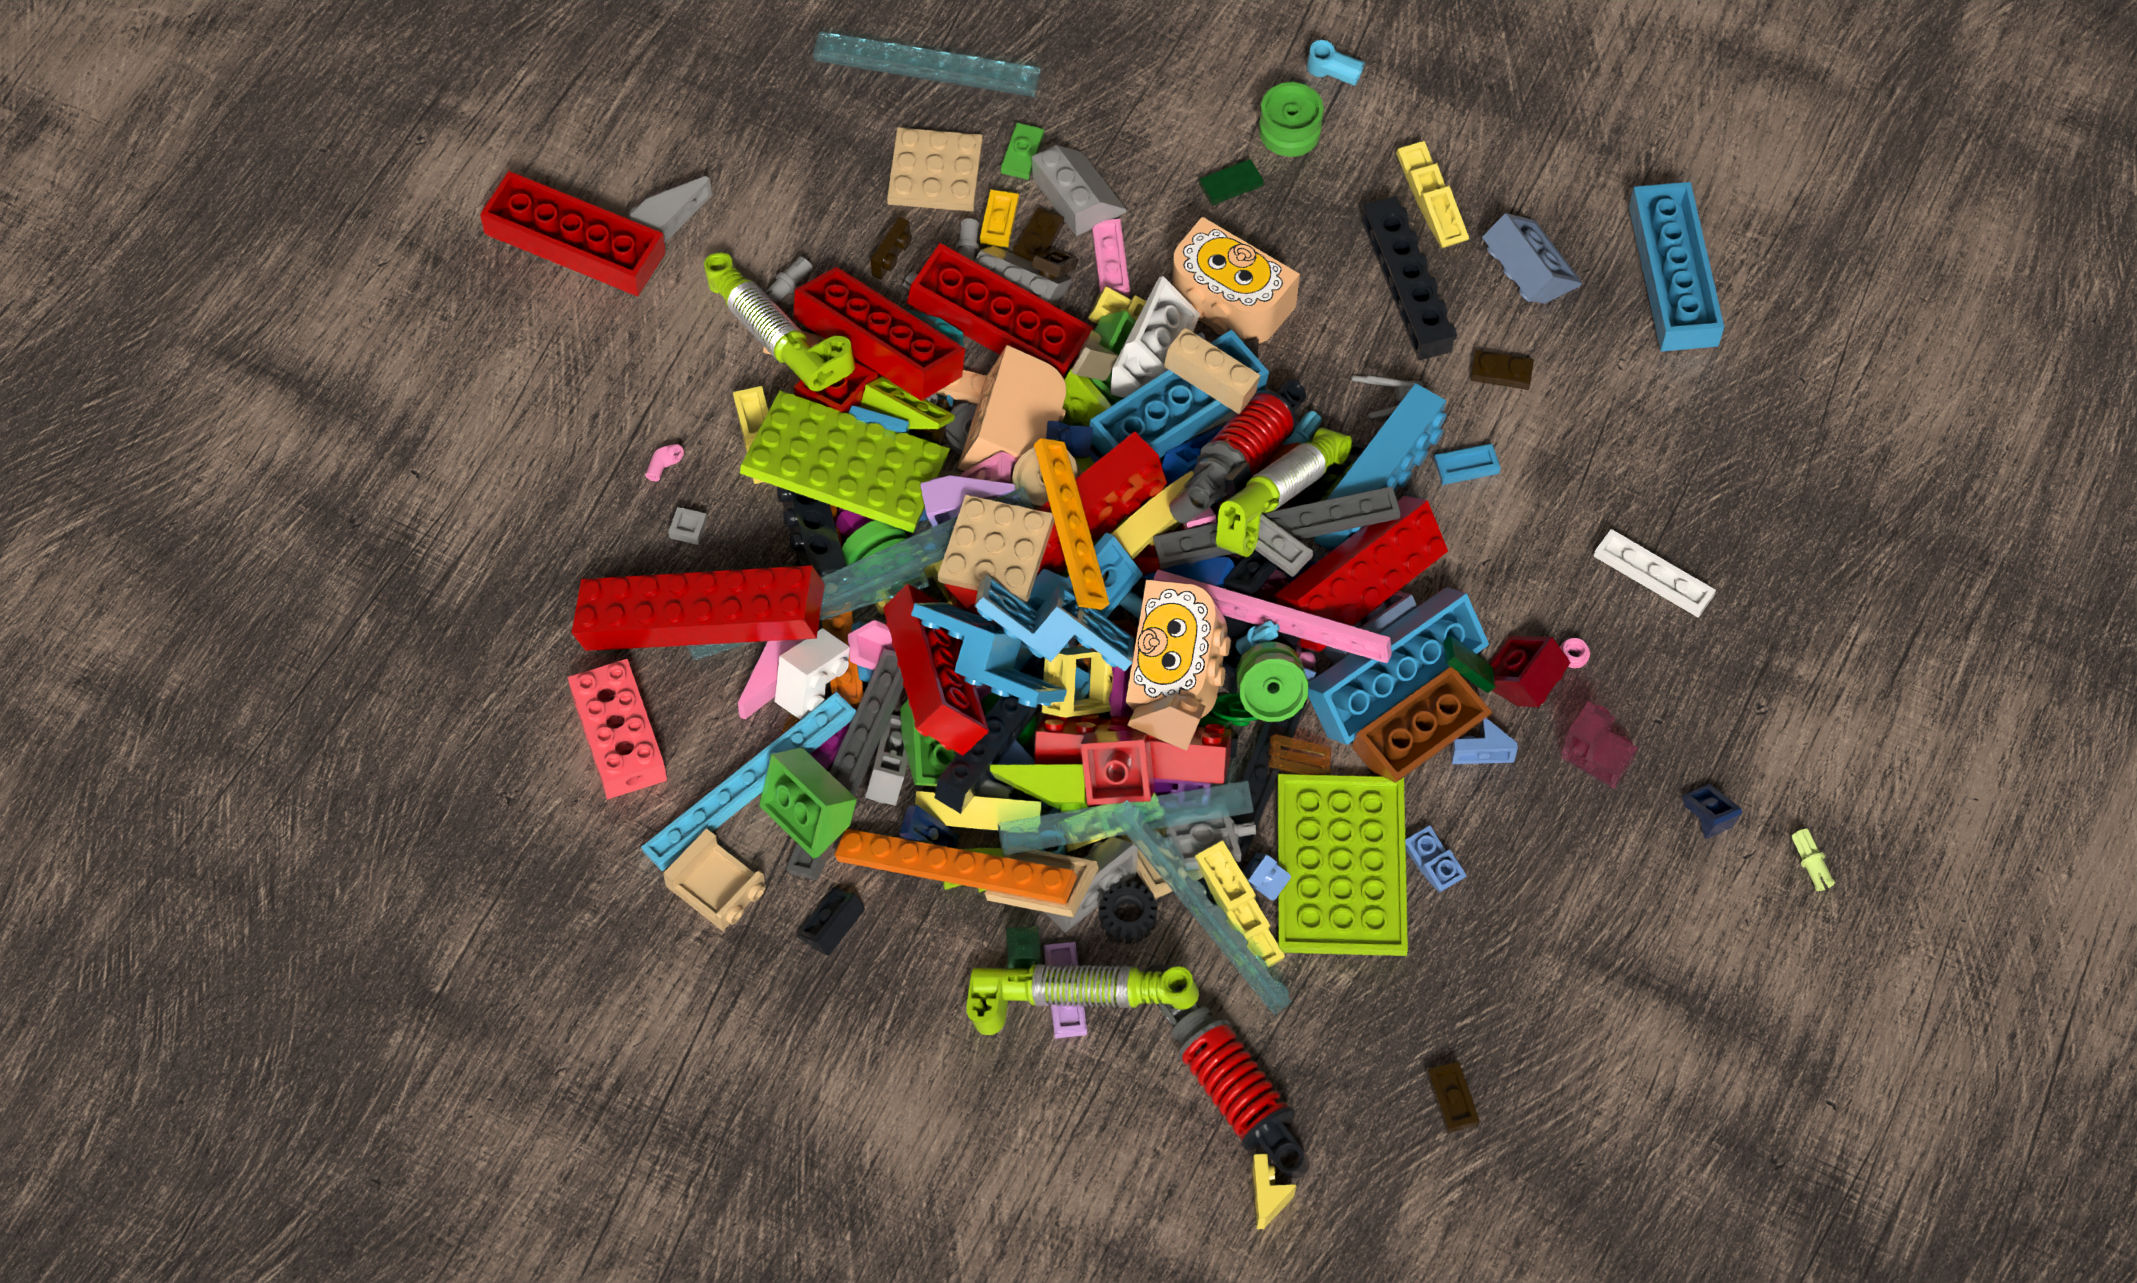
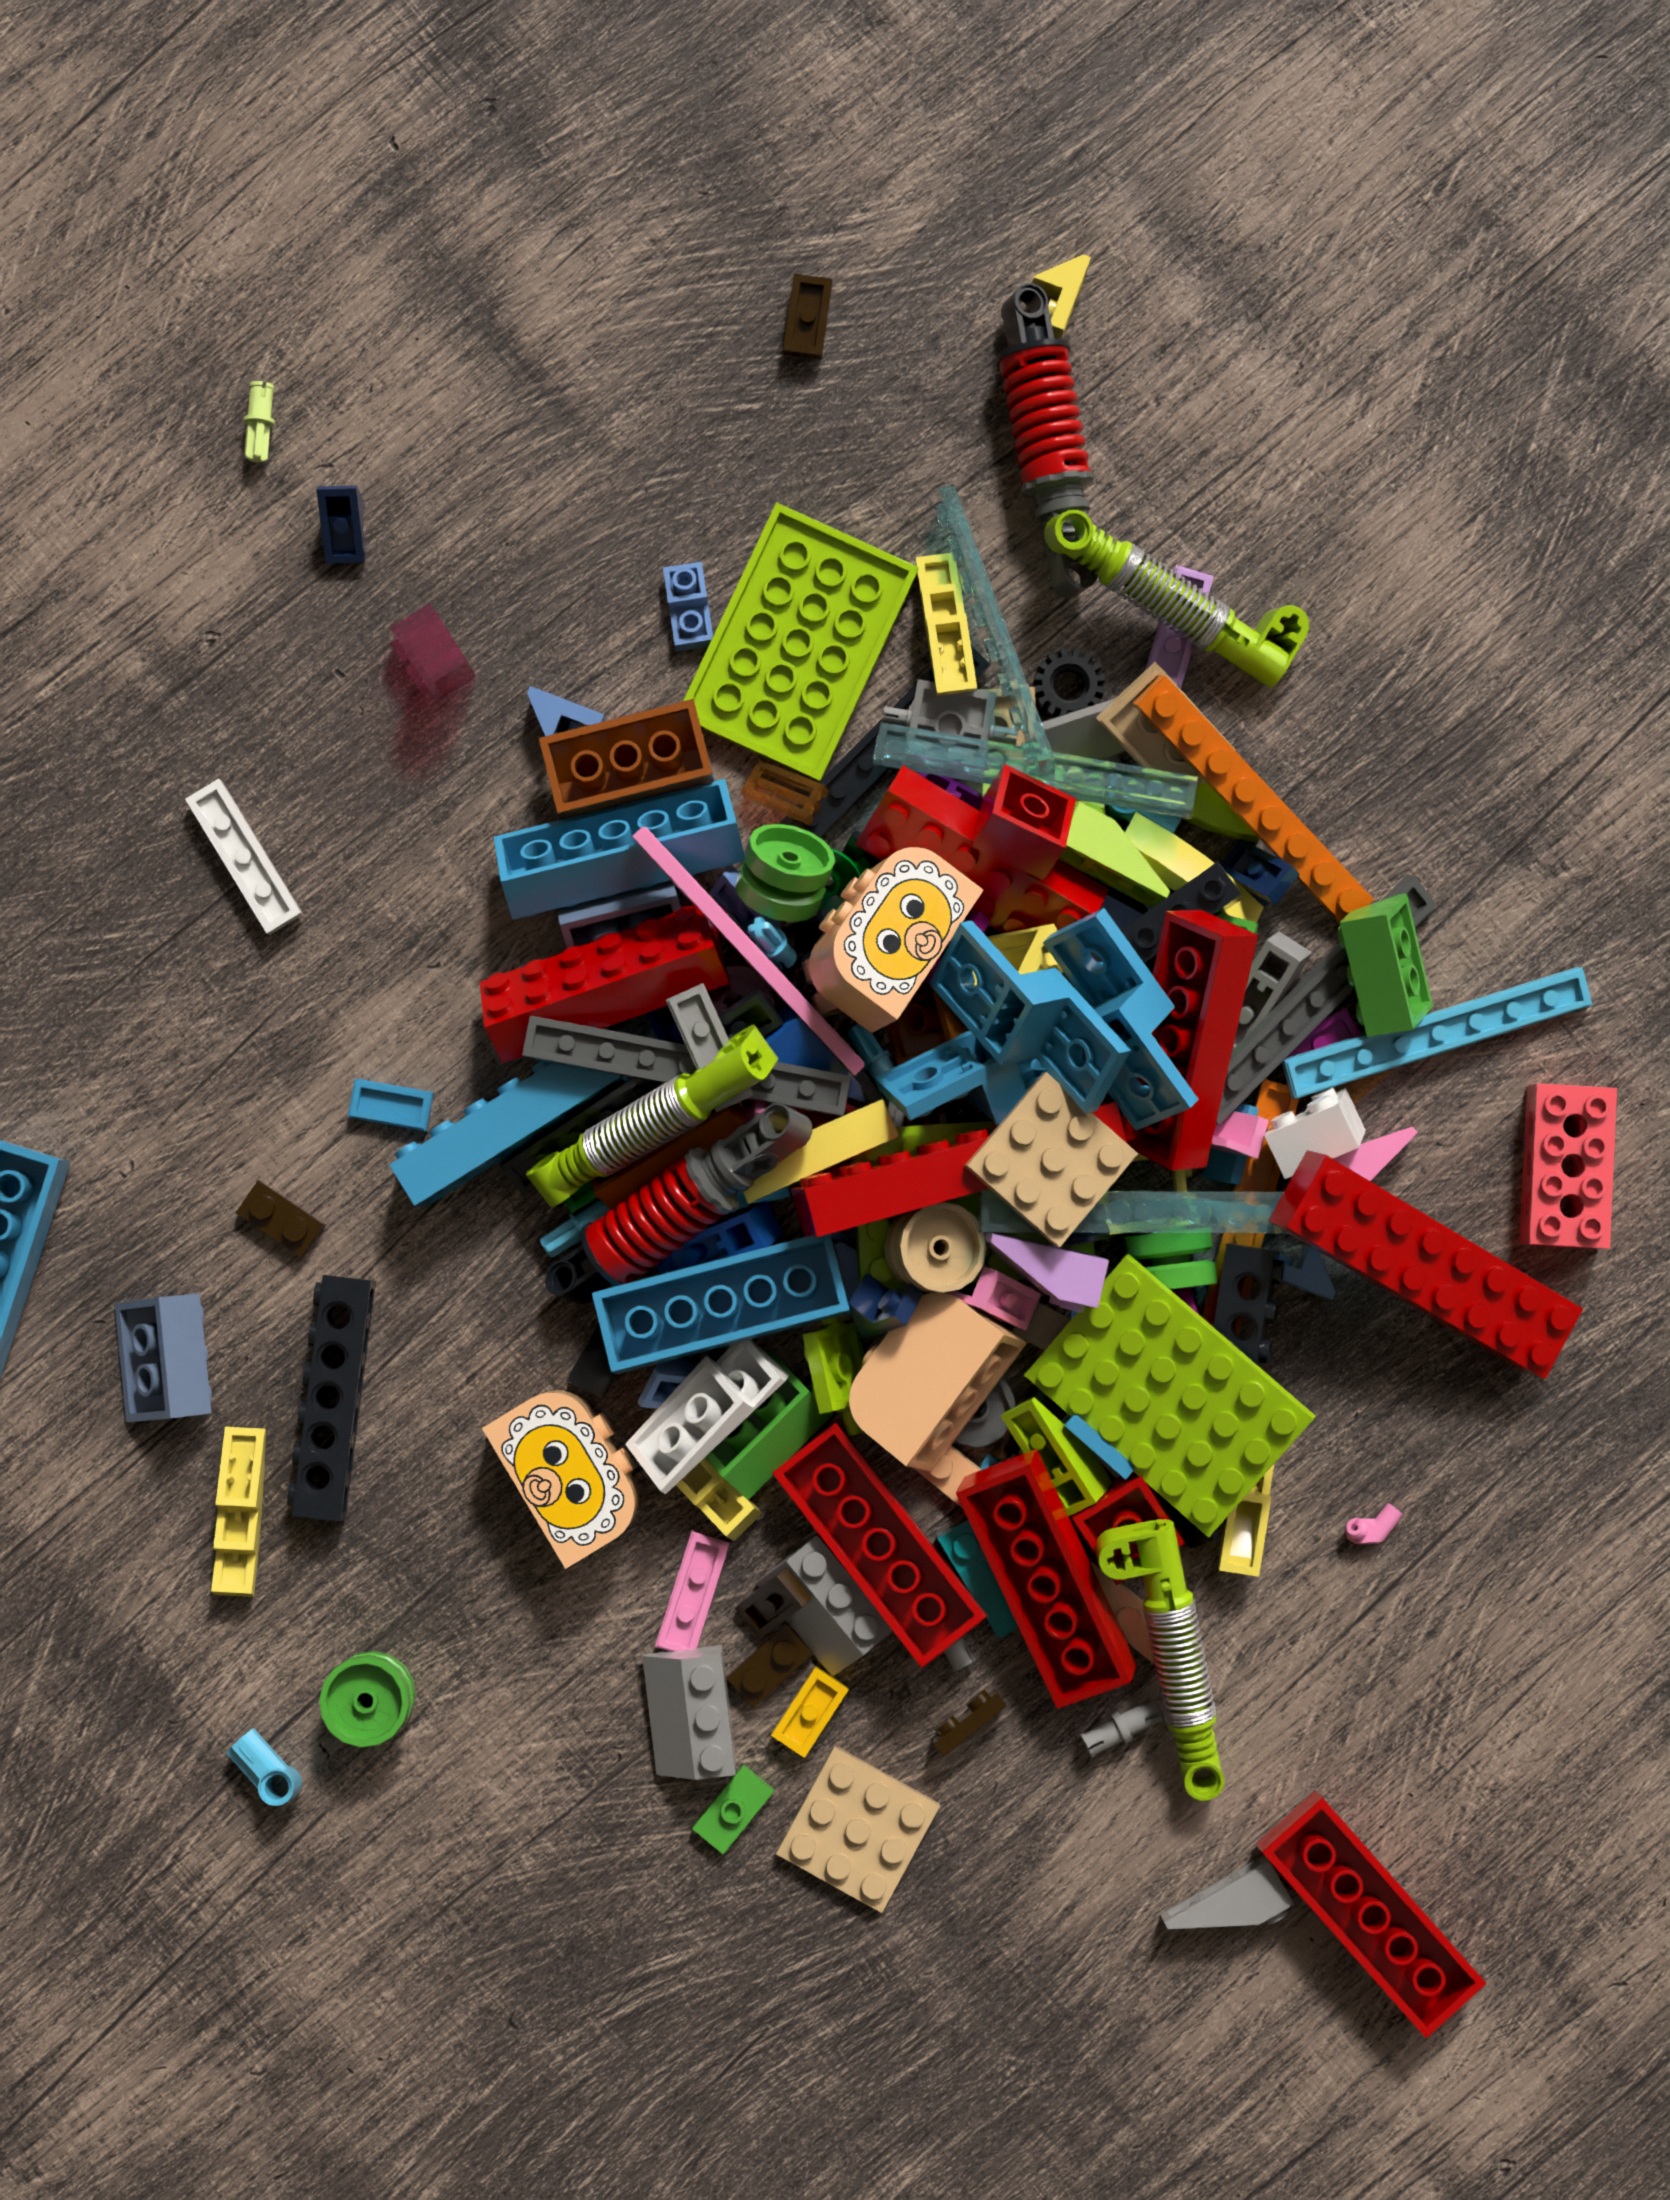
camera: 155 degrees left, 25 degrees up
(687, 525) = (1379, 1416): light grey plate -> none
(714, 881) = (1522, 923): tan panel -> none
(831, 920) = (1408, 824): black slope -> none
(927, 64) = (801, 2001): clear light blue plate -> none
(968, 244) = (870, 1683): light grey pin -> none
(1023, 947) = (1210, 685): clear green brick -> none
(1071, 524) = (953, 1139): light orange plate -> none
(1093, 359) = (803, 1412): dark tan slope -> none
(1169, 719) = (947, 837): slope -> none
(1212, 370) = (669, 1308): tan brick -> none
(1231, 182) = (486, 1644): dark green tile -> none
(1237, 478) = (708, 1136): black tile -> none
(1266, 875) = (899, 657): medium blue slope -> none
(1402, 389) = (415, 1232): light grey plant -> none
(1469, 664) = (534, 811): dark green tile -> none
(1528, 669) = (466, 794): dark red slope -> none
(1578, 646) = (388, 784): bright pink plate -> none

